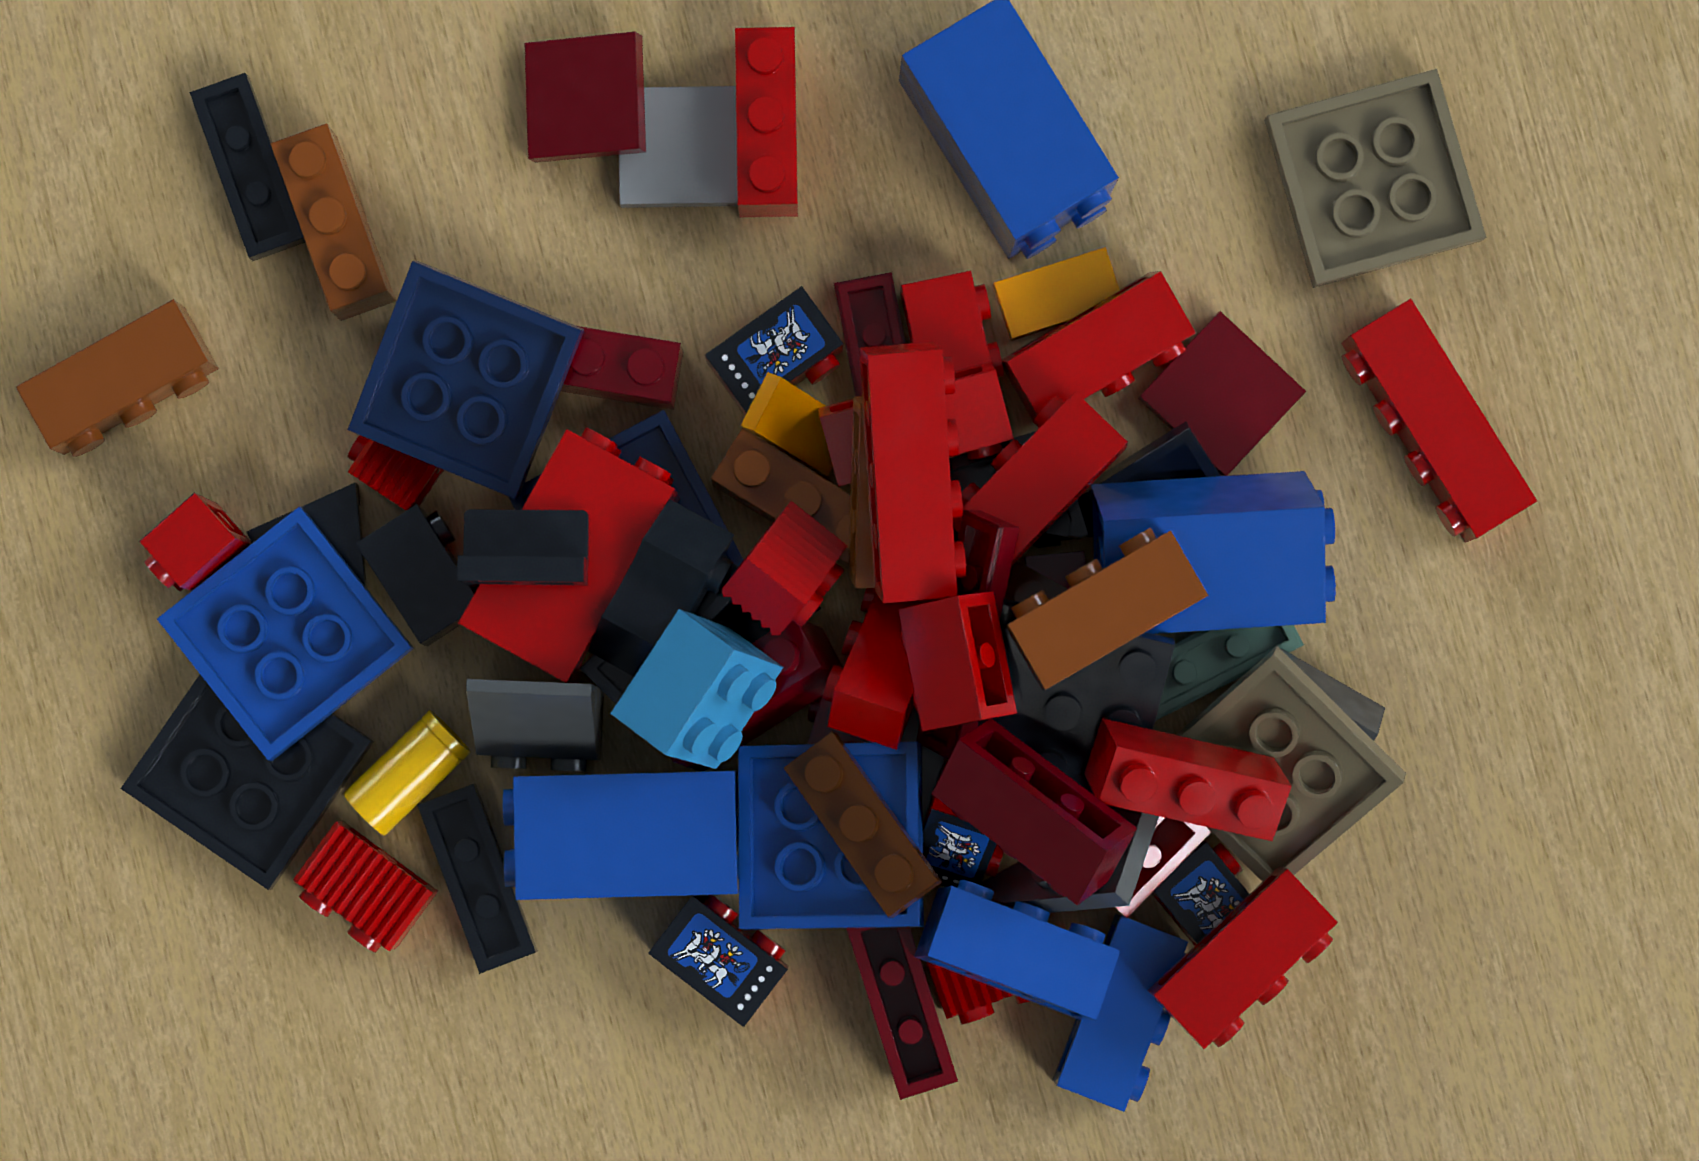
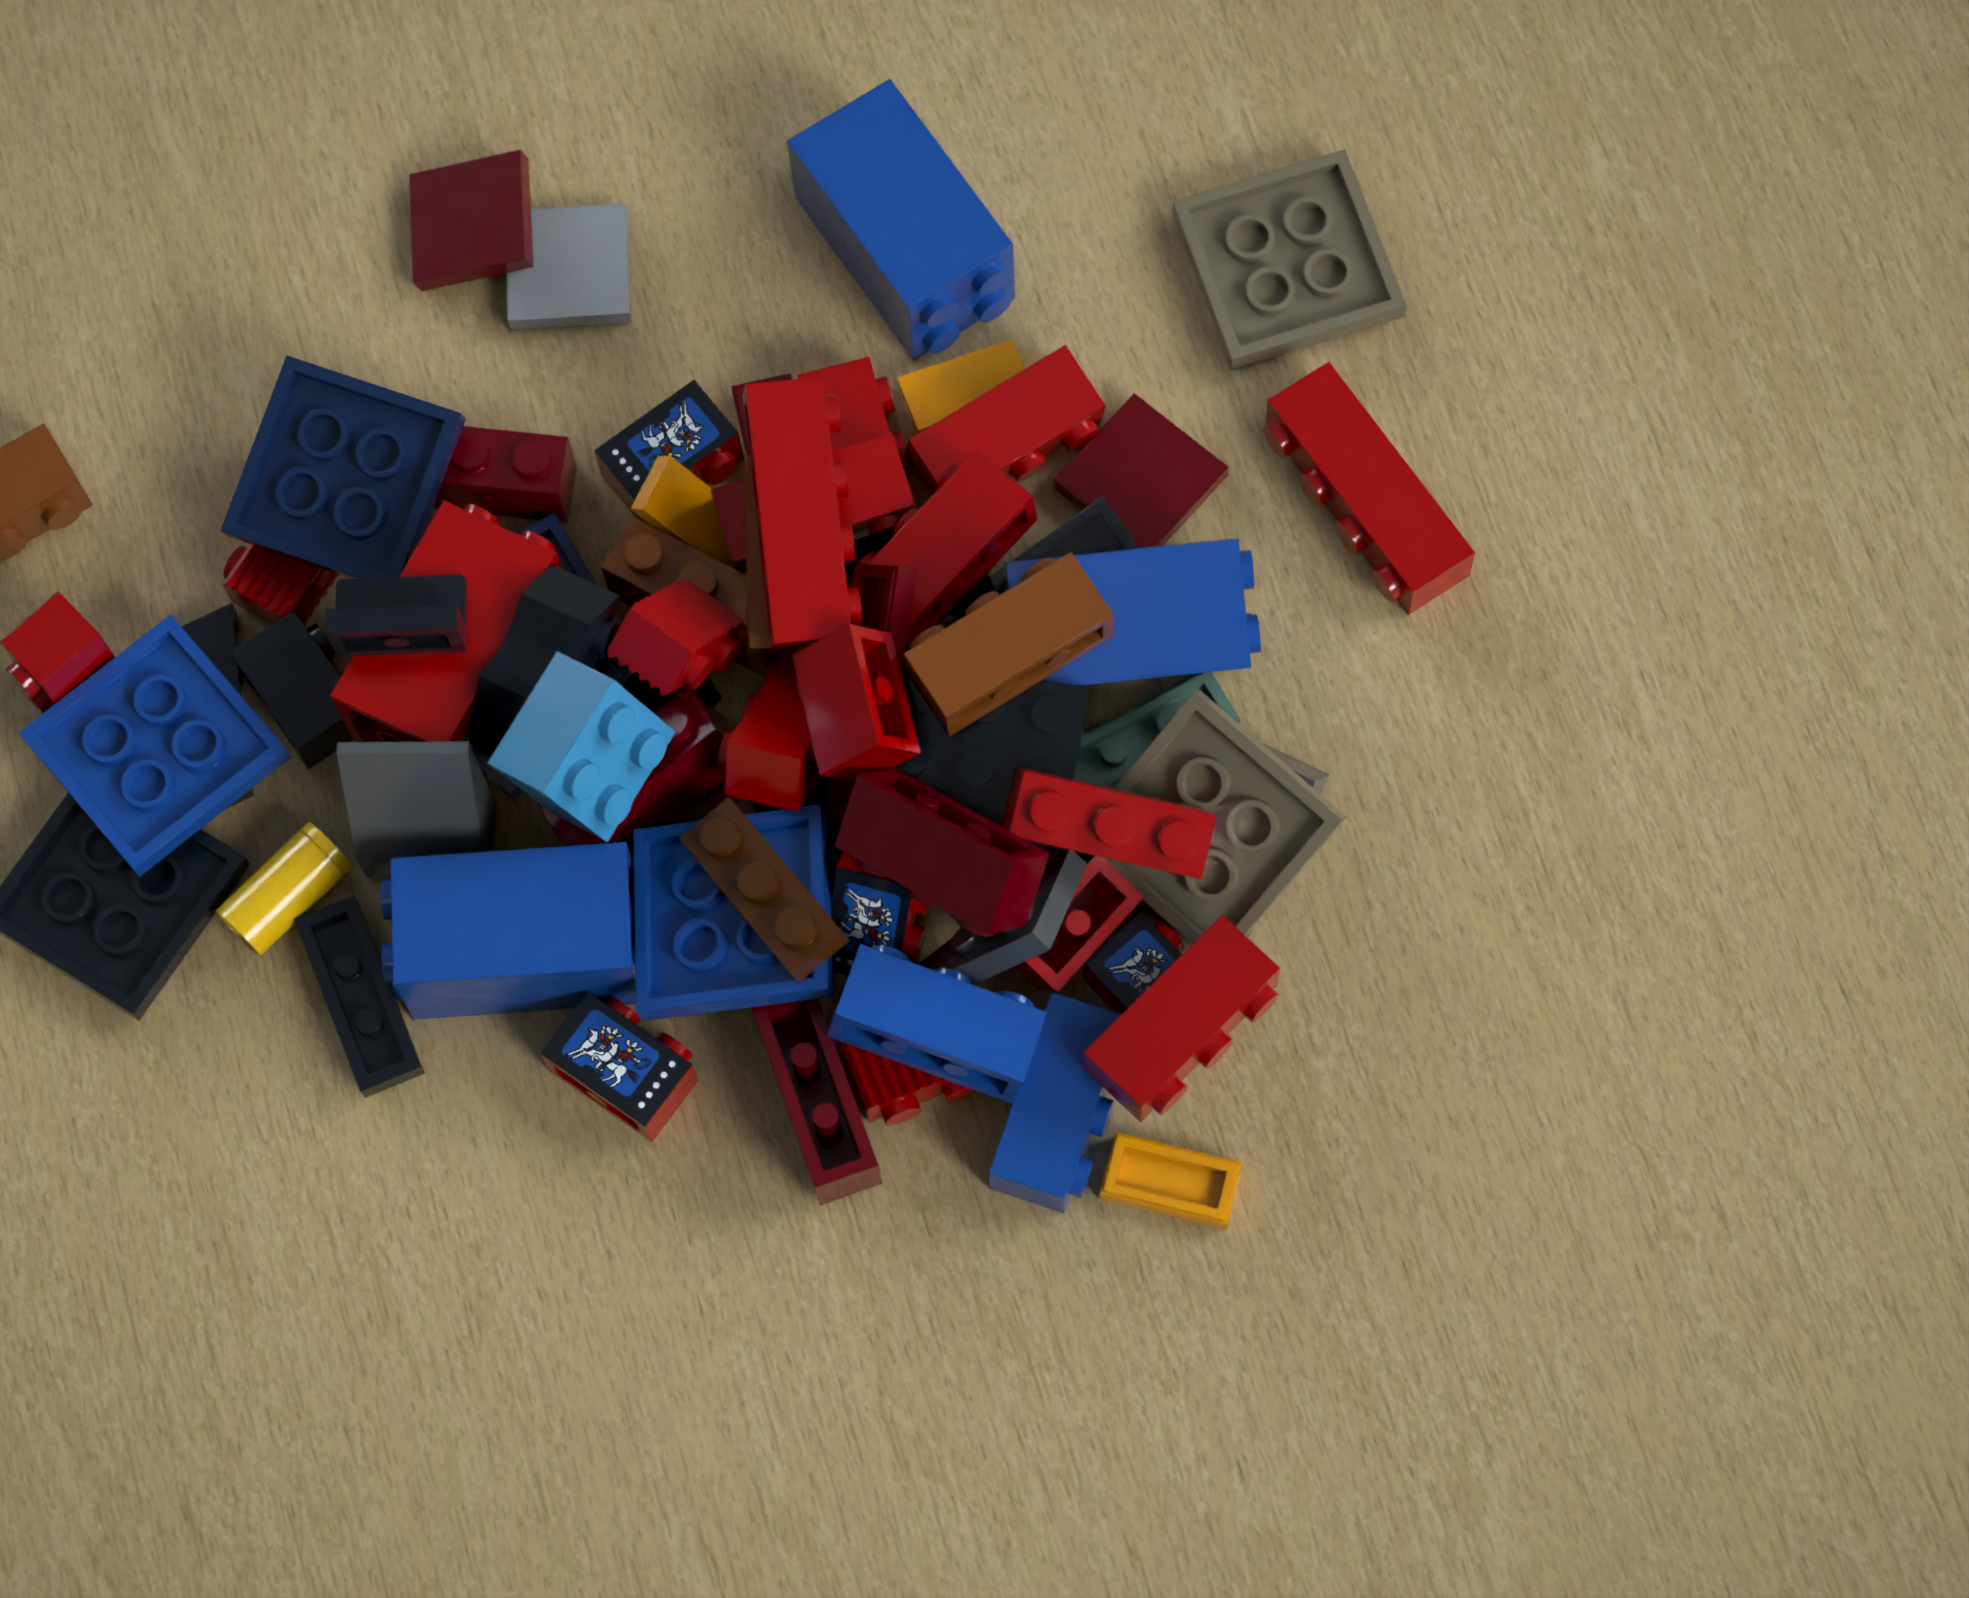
camera: 10 degrees right, 15 degrees down
(247, 166) = (126, 304): black plate -> none
(333, 222) = (210, 347): dark orange brick -> none
(364, 888) = (238, 1008): red brick -> none
(766, 122) = (656, 233): red brick -> none
(1217, 1083) = (1170, 1180): none -> light orange tile

